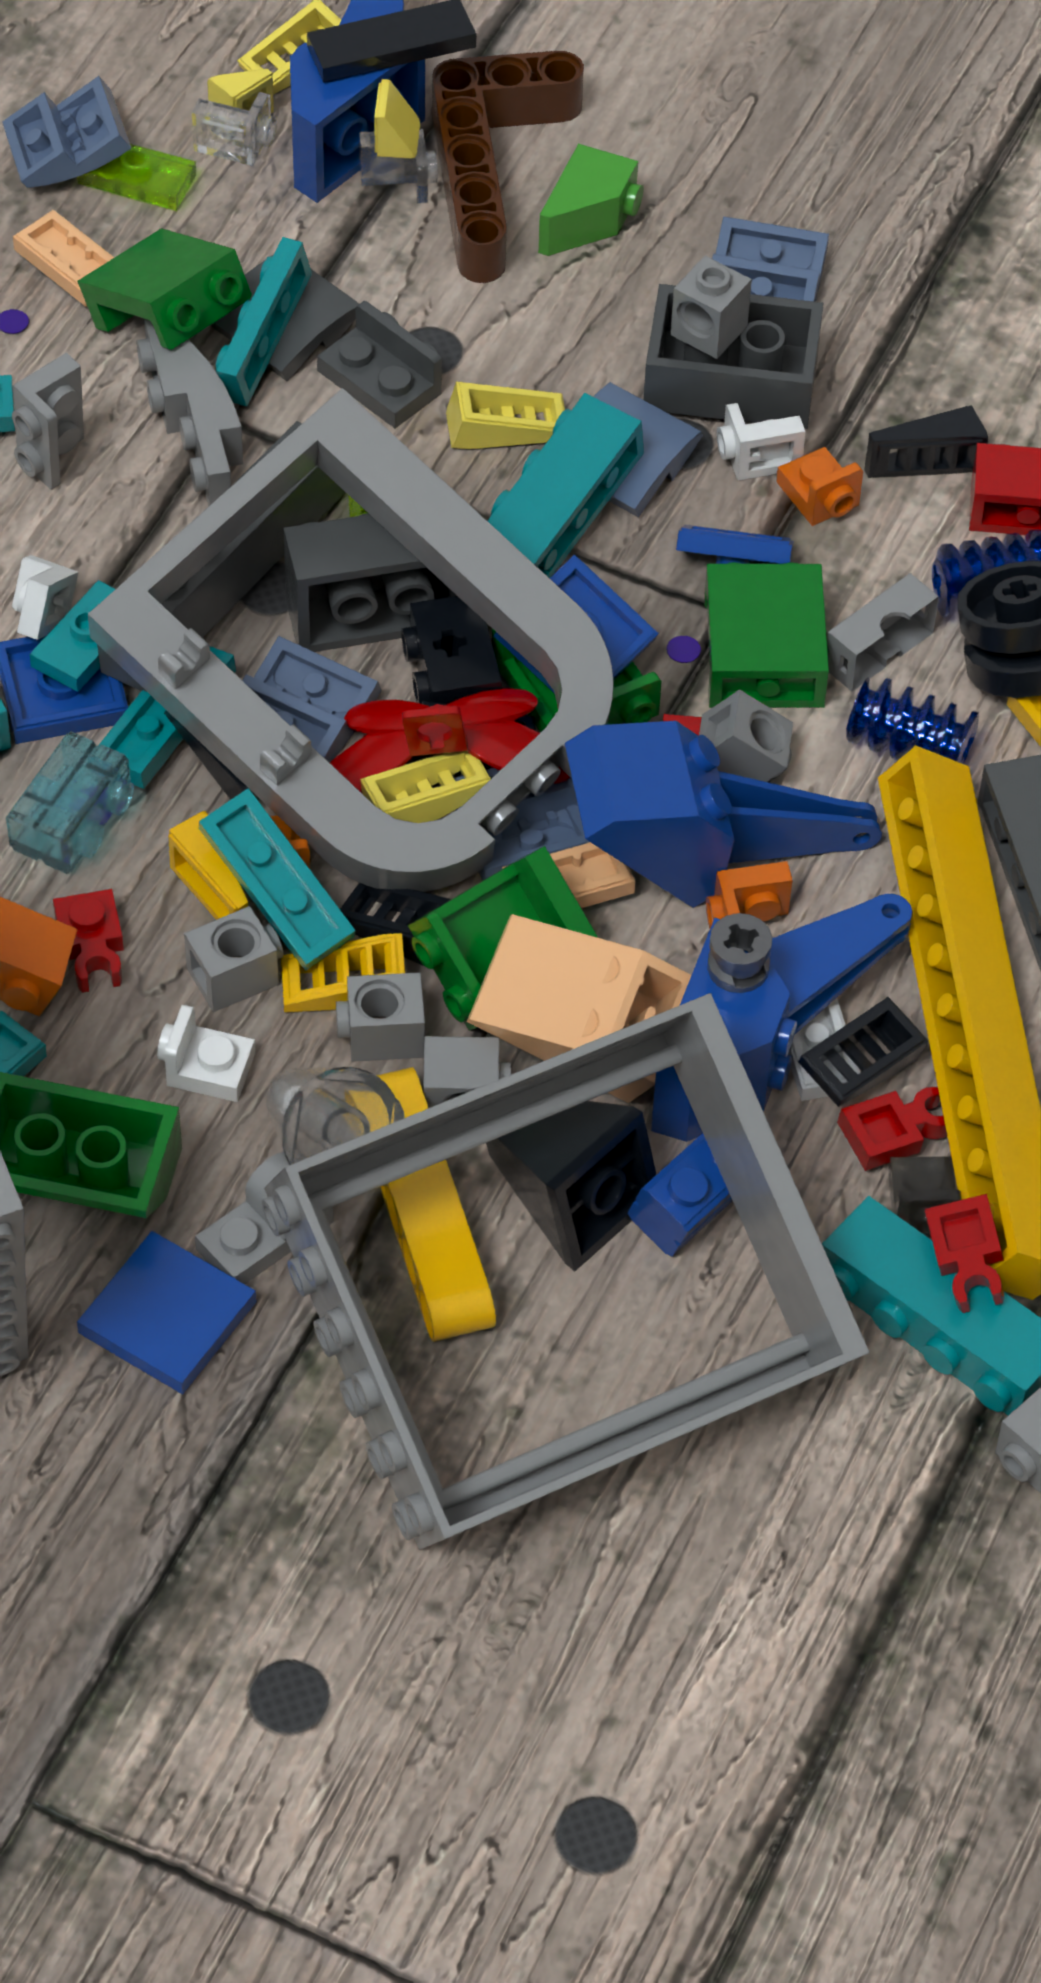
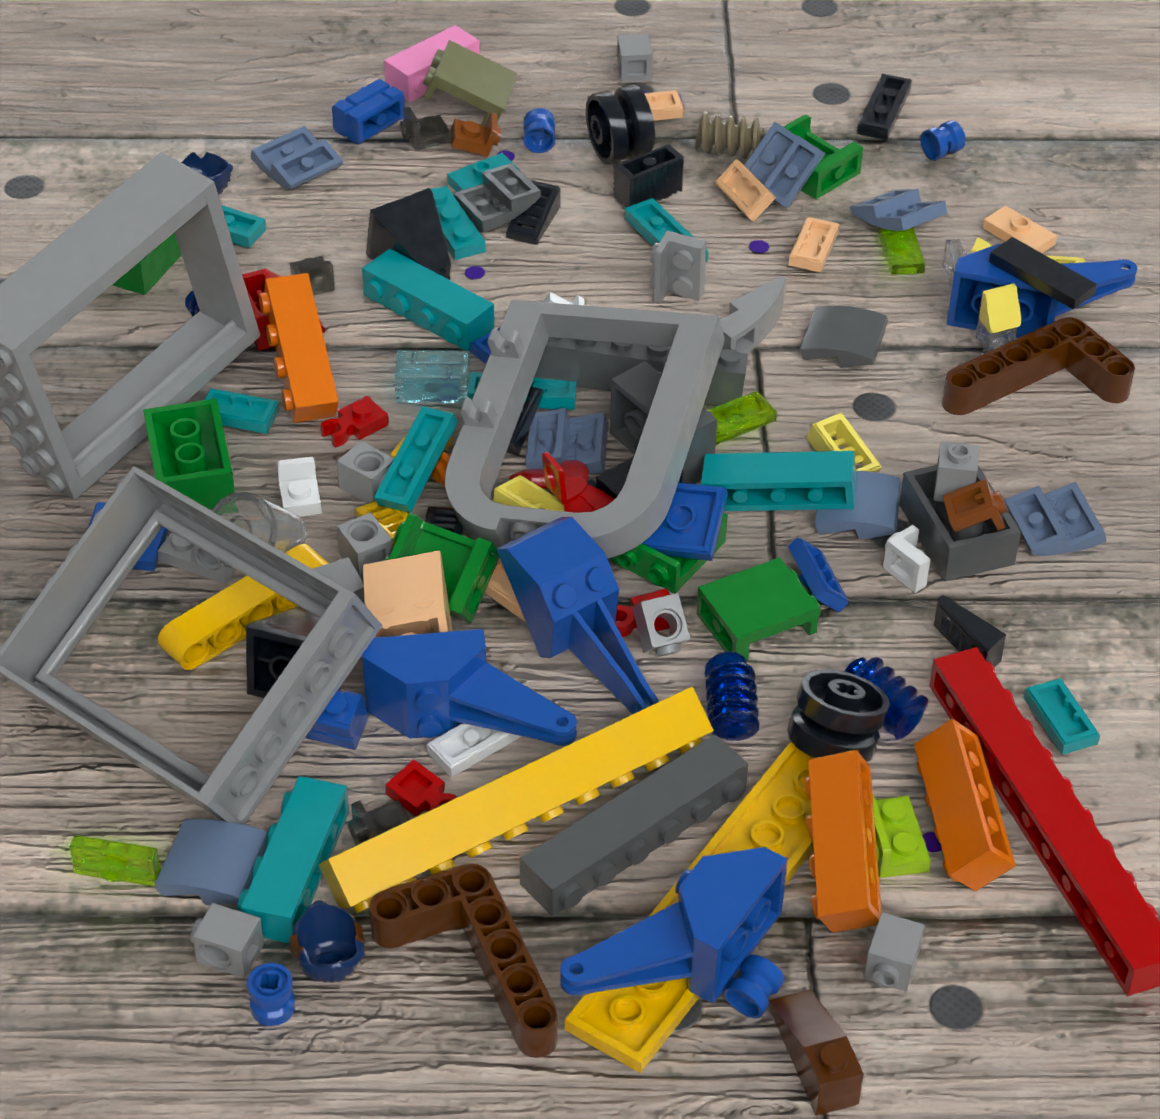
camera: 65 degrees right, 10 degrees down
(170, 281) = (806, 275): green panel -> none
(189, 38) = (1009, 223): none -> light nougat plate
(263, 320) = (815, 319): teal plate -> none
(383, 366) = (837, 387): dark grey bracket -> none
(589, 200) = (1033, 421): bright green slope -> none
(727, 961) = (452, 639): flat silver wheel -> none
(751, 890) = (548, 665): orange bracket -> none
(775, 320) = (973, 505): none -> dark orange bracket
(821, 485) = (901, 600): orange bracket -> none
(841, 1524) = (114, 860): none -> clear neon green plate
(881, 629) = (792, 657): light grey piece -> none
(890, 1027) = (466, 774): black slope -> none
(891, 1410) = (211, 860): none -> sand blue slope
(966, 1244) = (323, 835): red plate -> none

